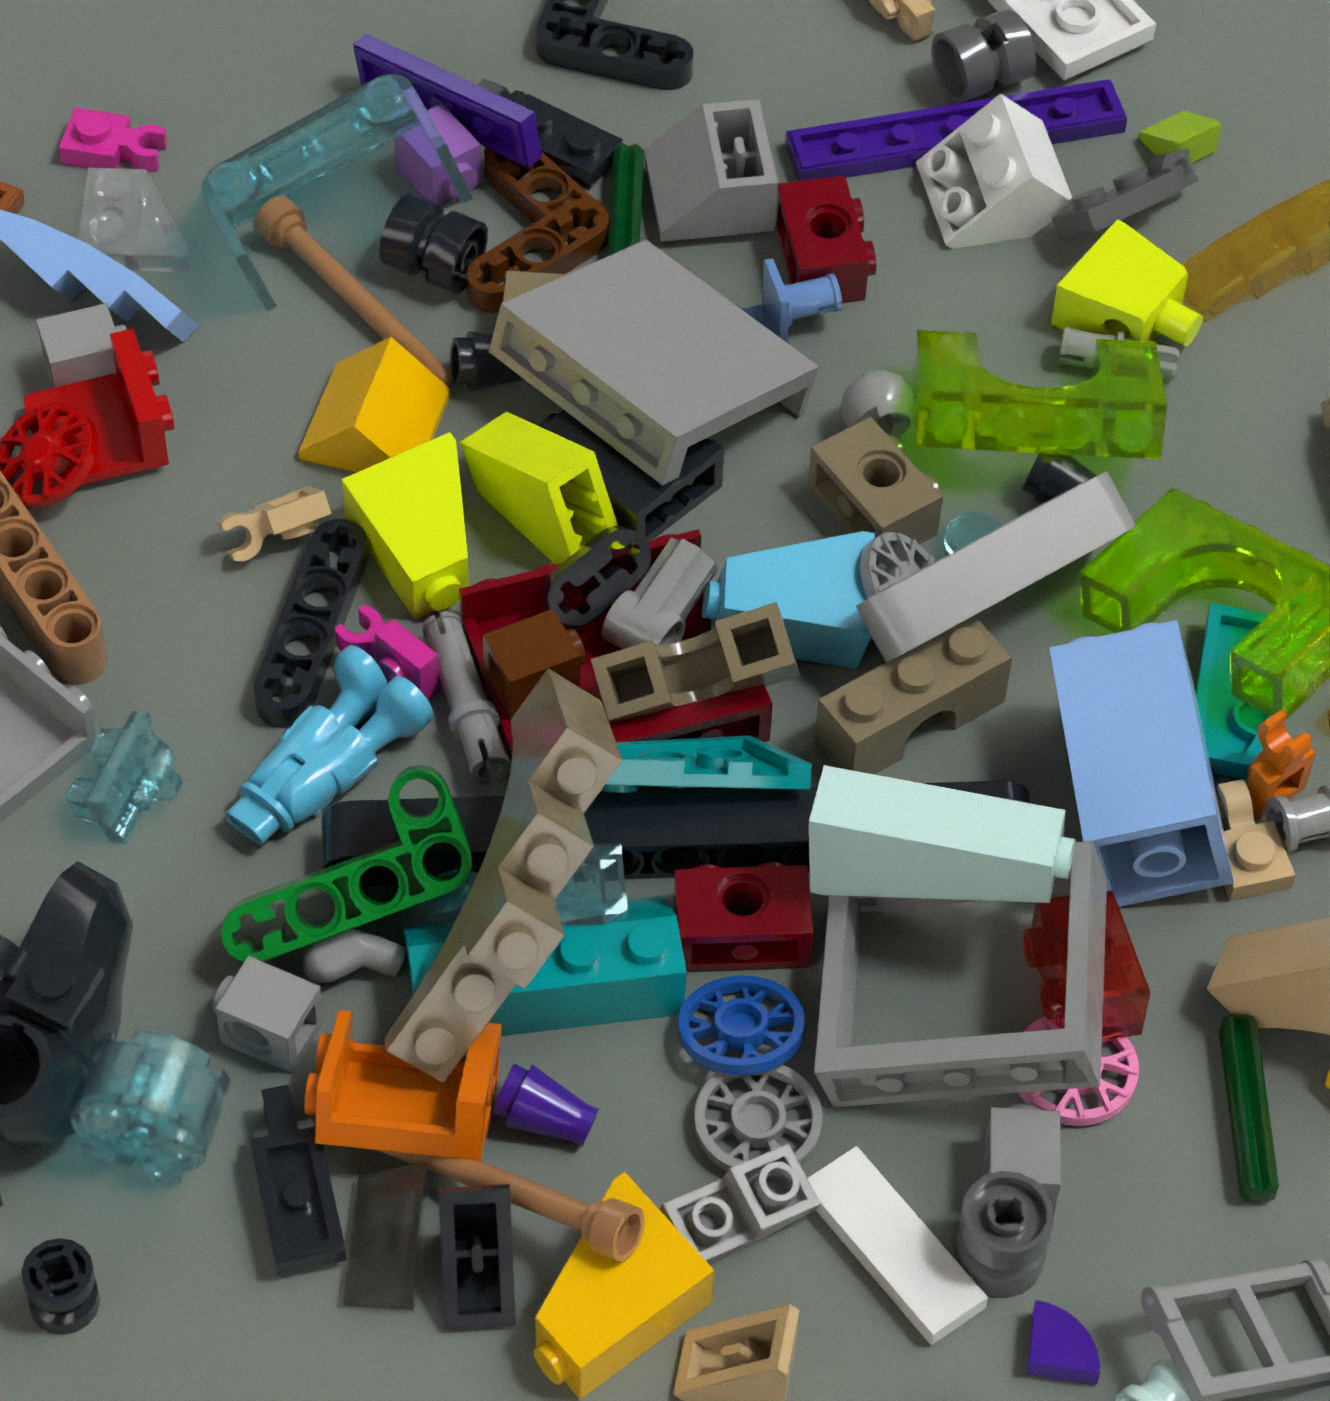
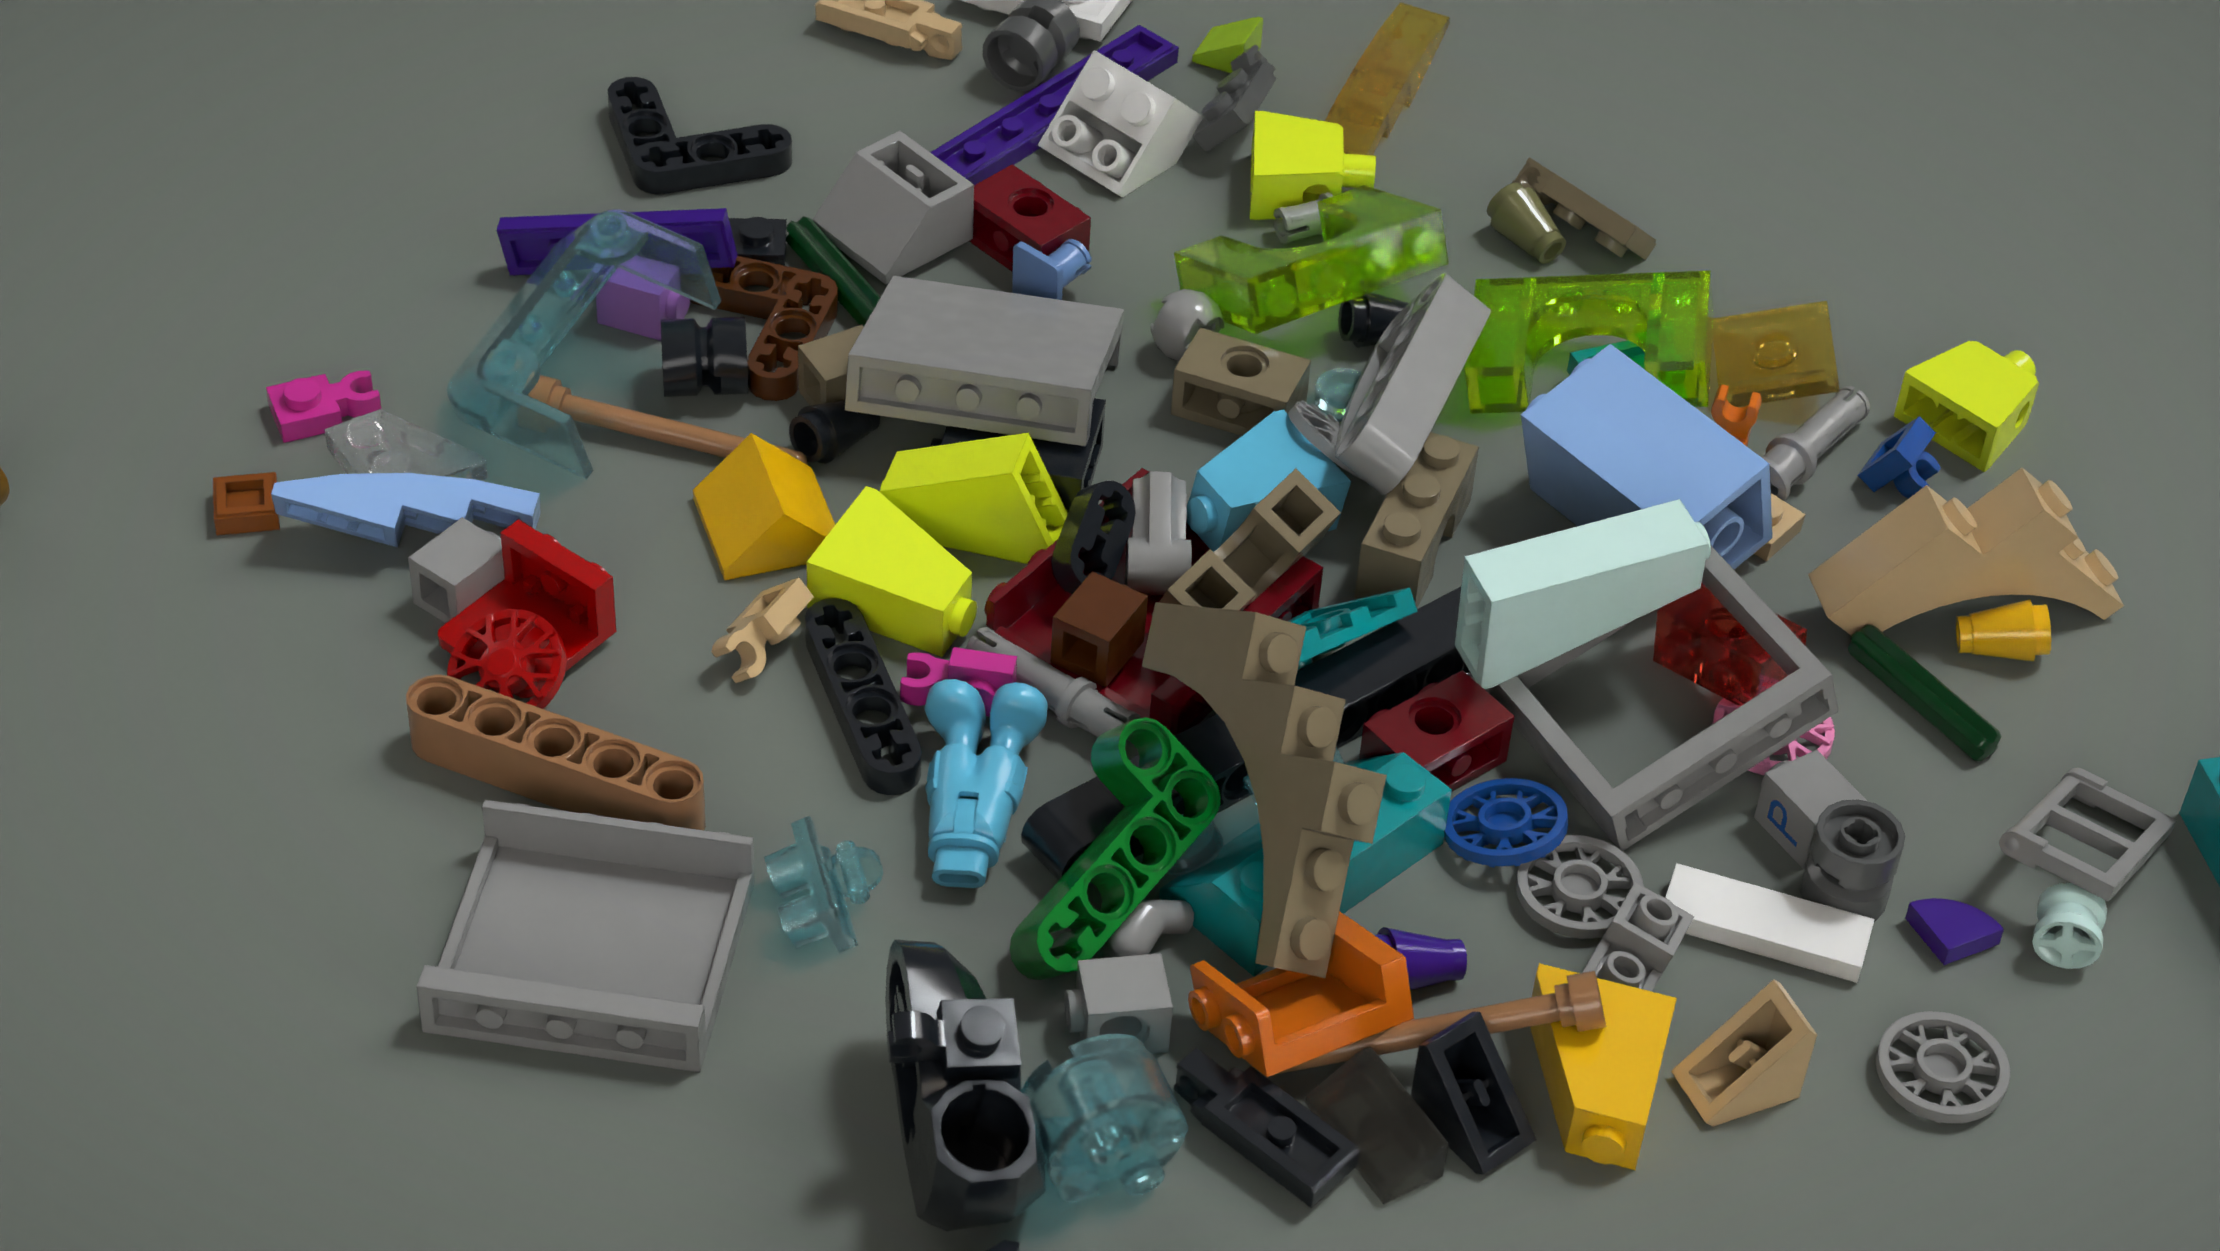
camera: 35 degrees left, 10 degrees down
(1297, 448) = (1524, 220): none -> olive cone

